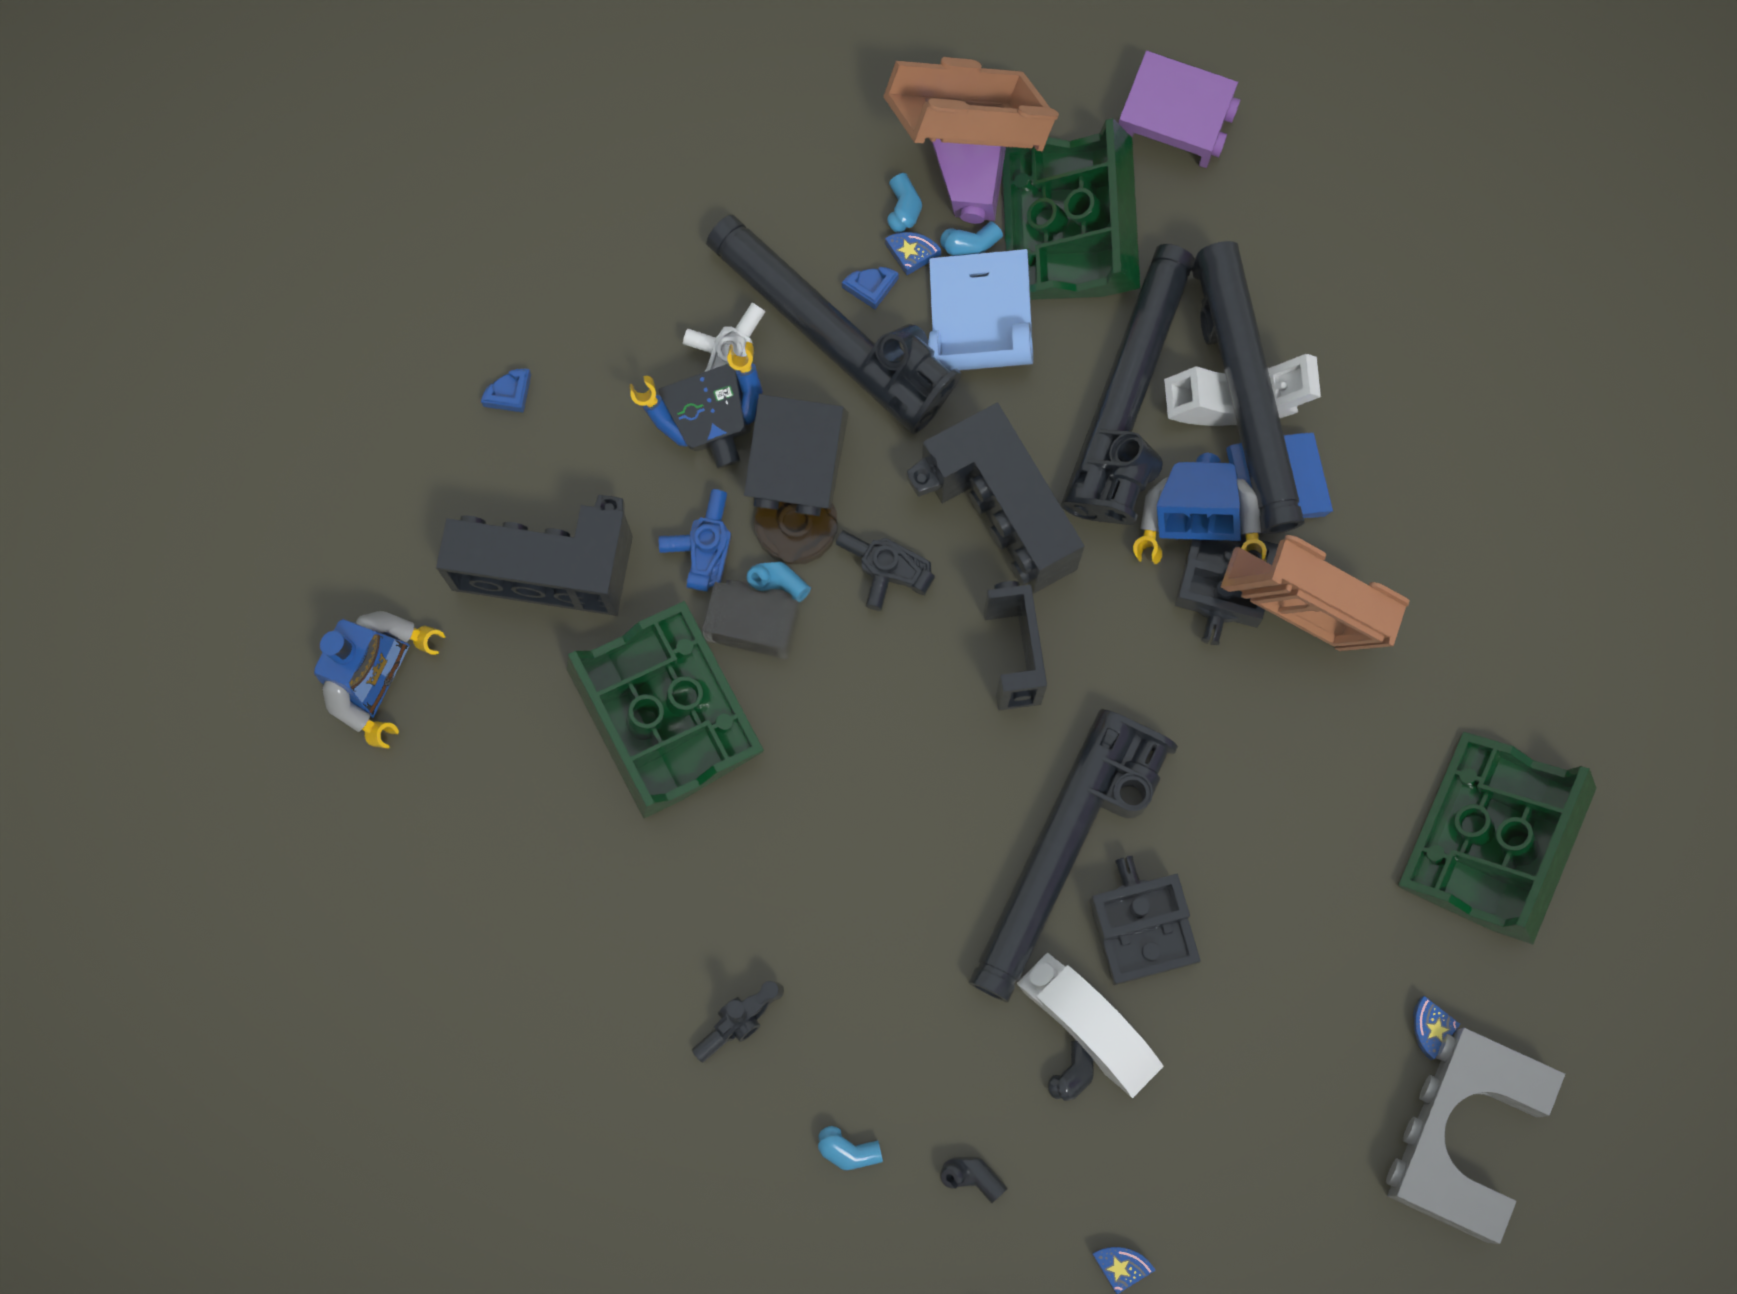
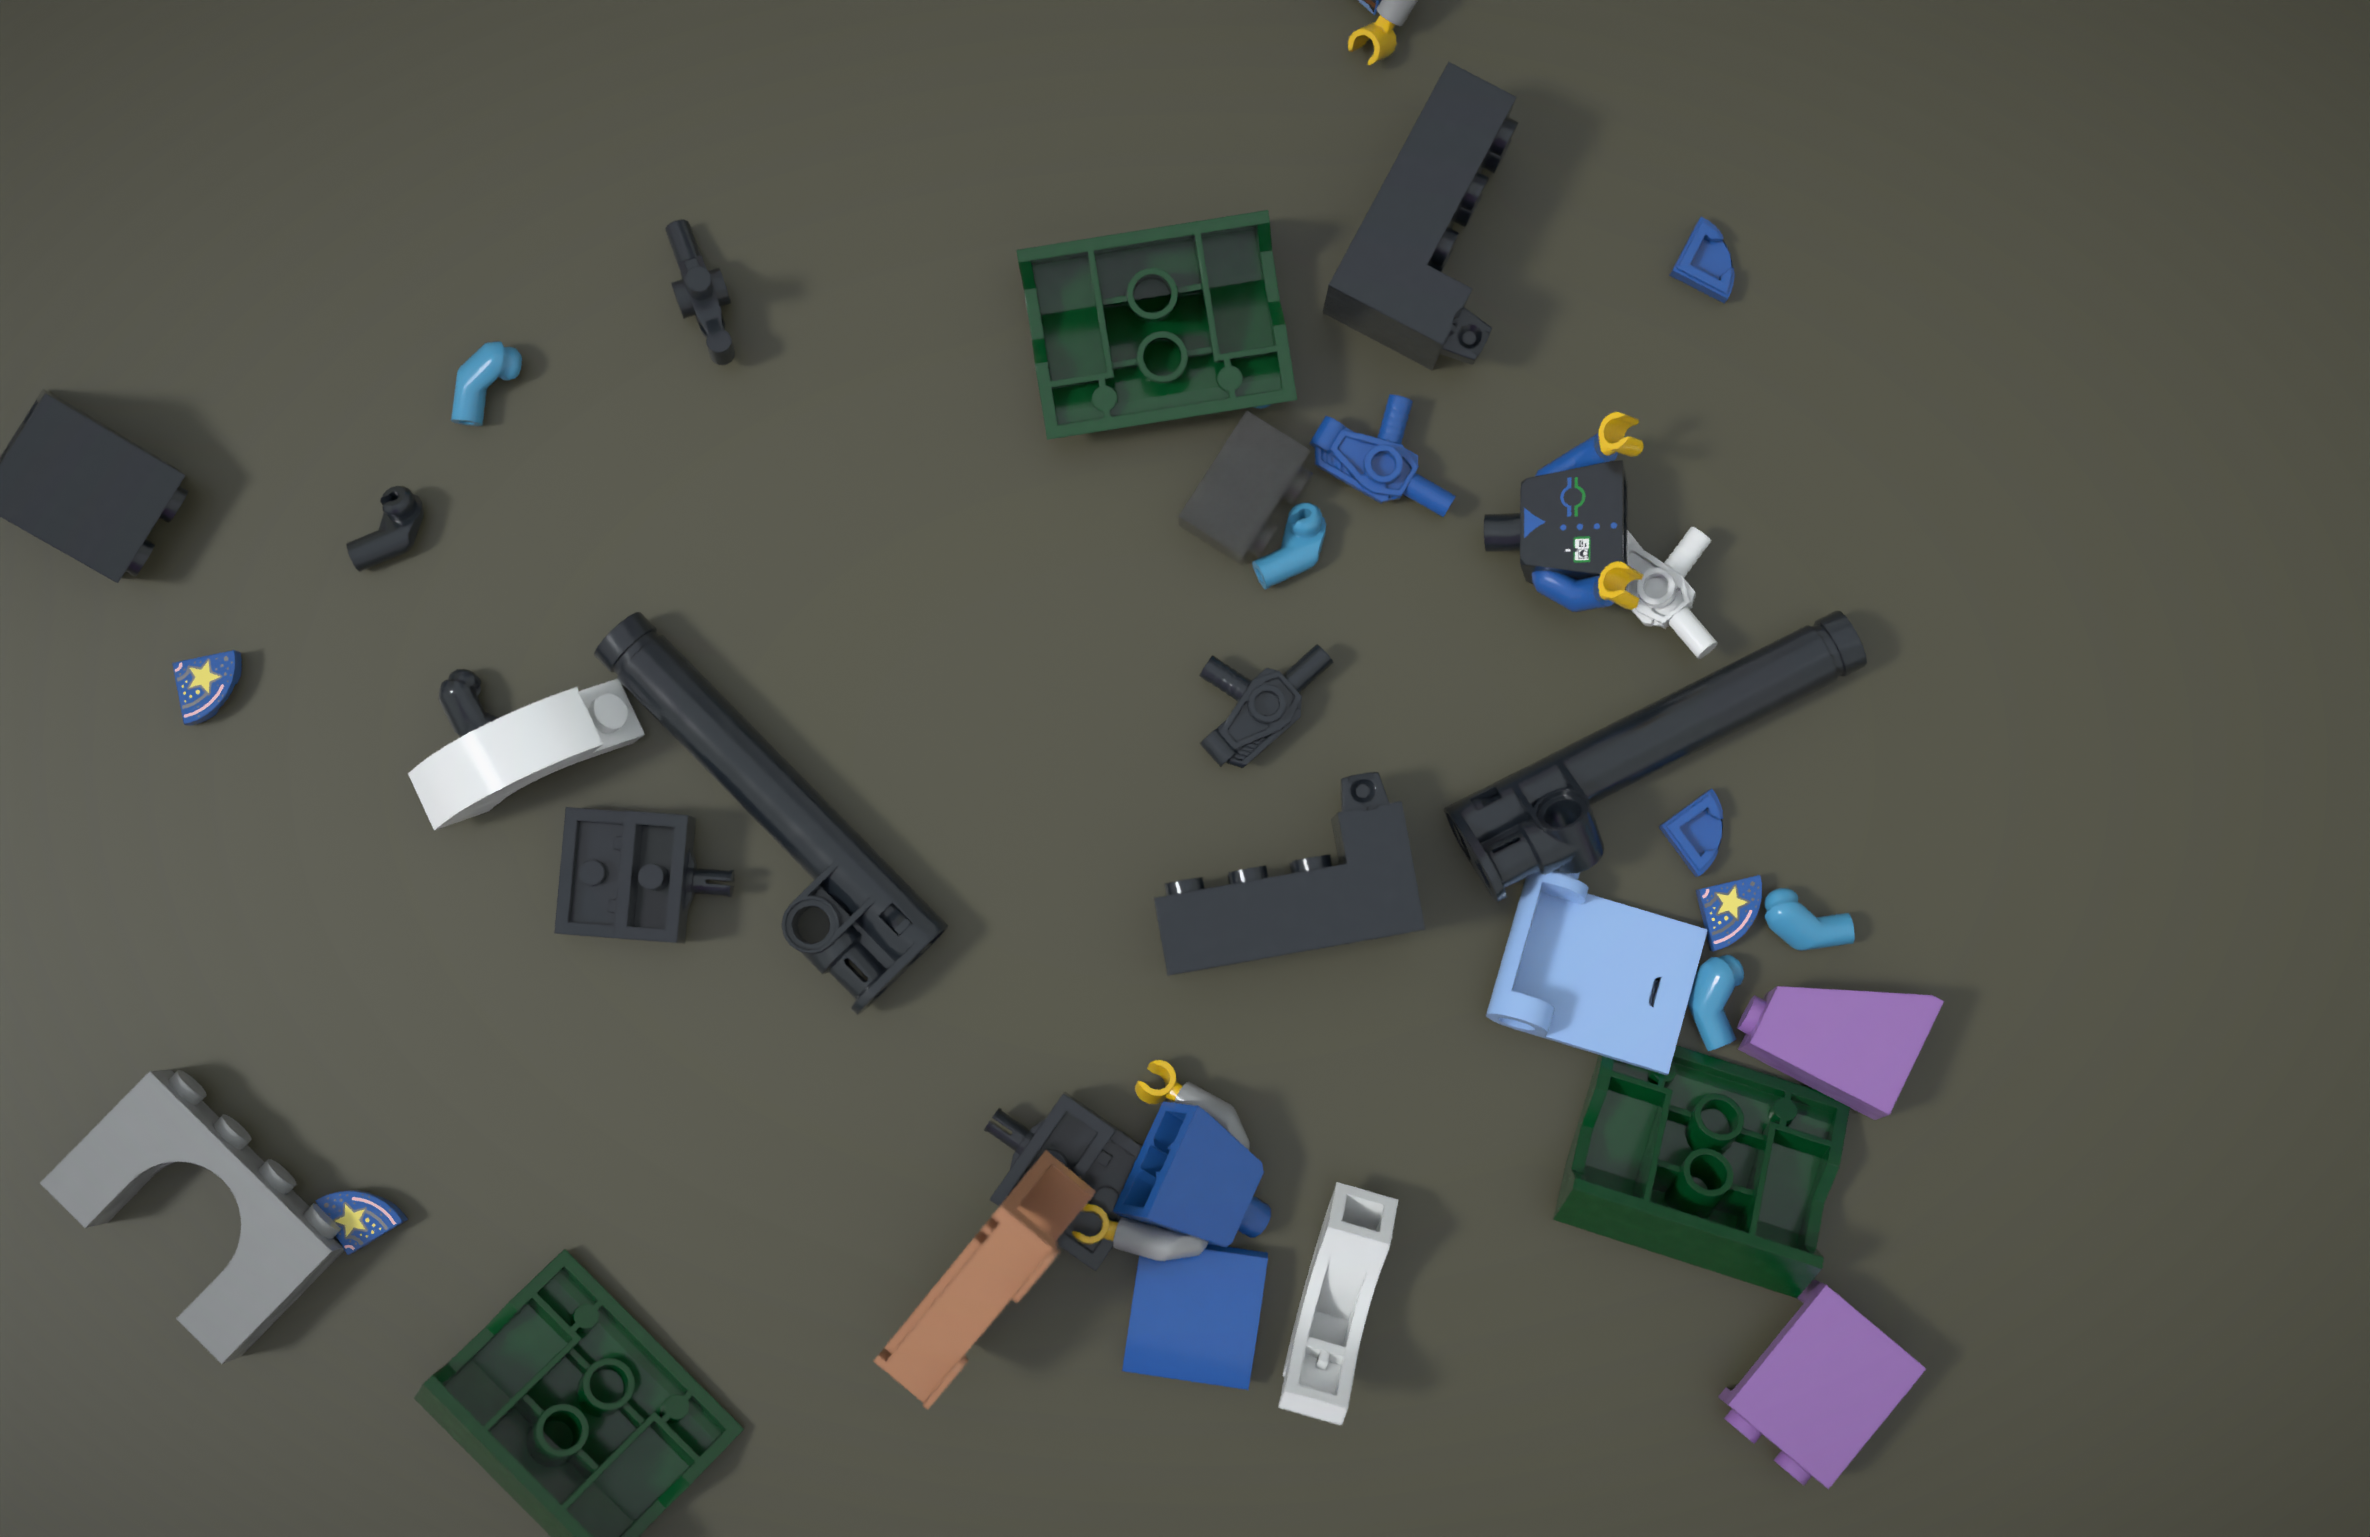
camera: 105 degrees right, 10 degrees up
(795, 454) = (1465, 628): black slope -> none
(799, 537) = (1360, 622): dark brown tile -> none
(968, 104) = (1956, 1071): nougat piece -> none
(1025, 687) = (1006, 831): black panel -> none
(1113, 458) = (1282, 1059): black piece -> none
(1230, 321) = (1419, 1325): black piece -> none

